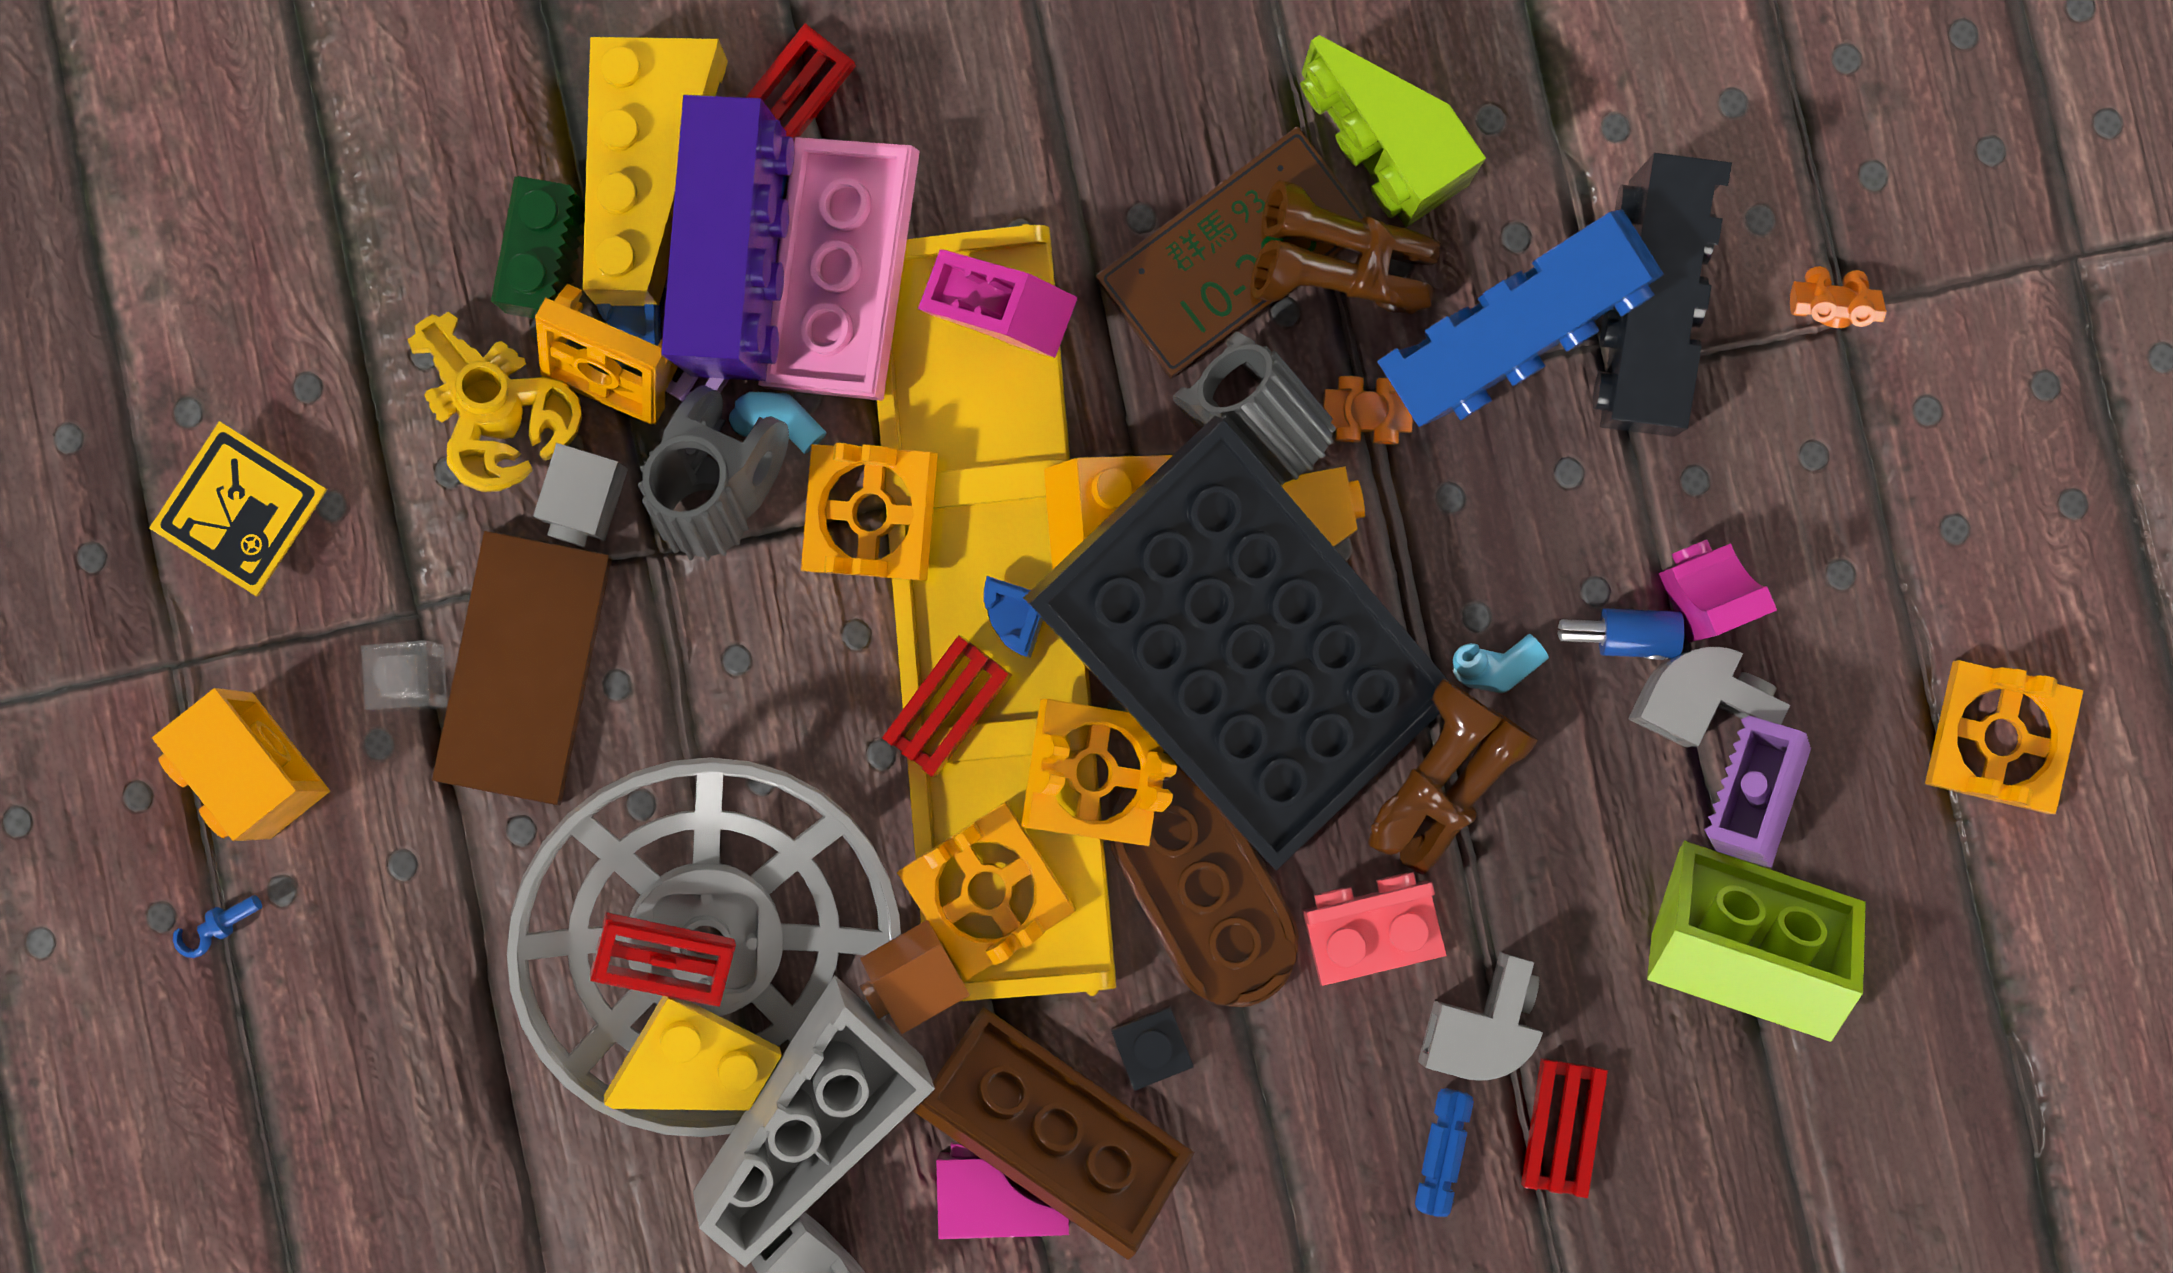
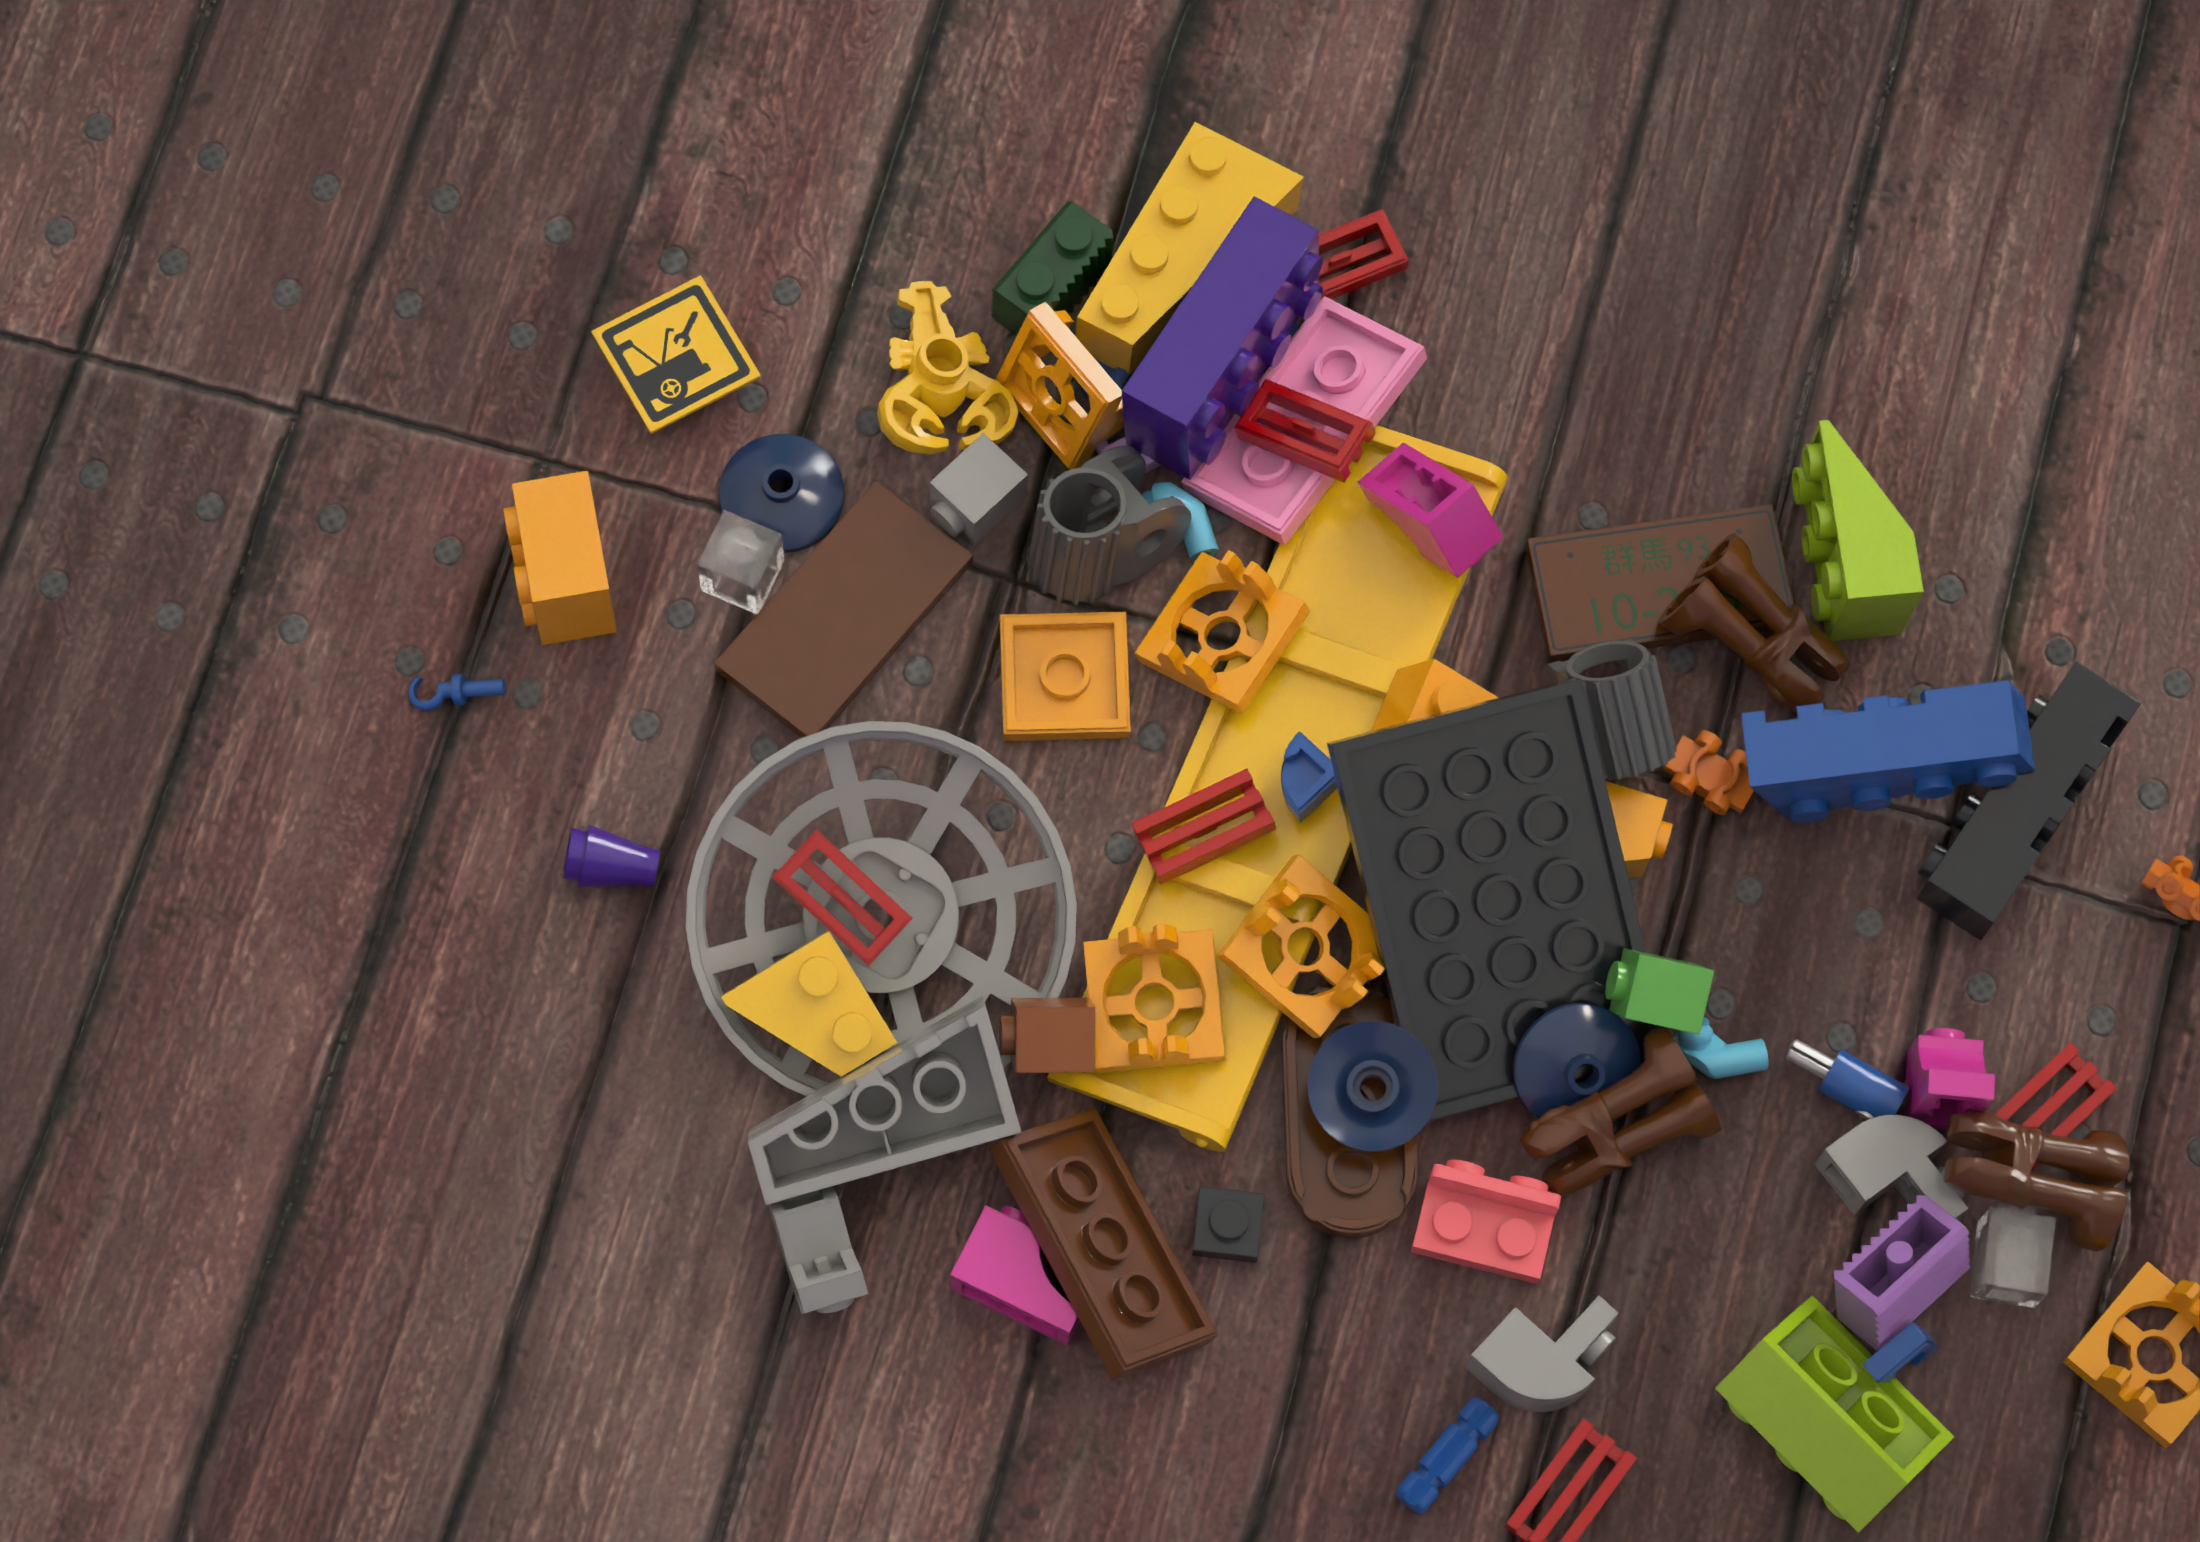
camera: 25 degrees right, 15 degrees down
(436, 590) = (802, 512): none -> dark blue dish
(436, 1013) = (608, 860): none -> dark purple cone
(749, 622) = (1064, 676): none -> light orange tile
(894, 286) = (1346, 451): none -> red tile
(1223, 903) = (1368, 1052): none -> dark blue dish
(1371, 737) = (1561, 1044): none -> dark blue dish
(1429, 654) = (1659, 990): none -> bright green brick
(1790, 858) = (1910, 1345): none -> blue tile
(1807, 635) = (2006, 1174): none -> reddish brown piece
(1831, 572) = (2083, 1073): none -> red tile
(1843, 718) = (2012, 1256): none -> clear brick

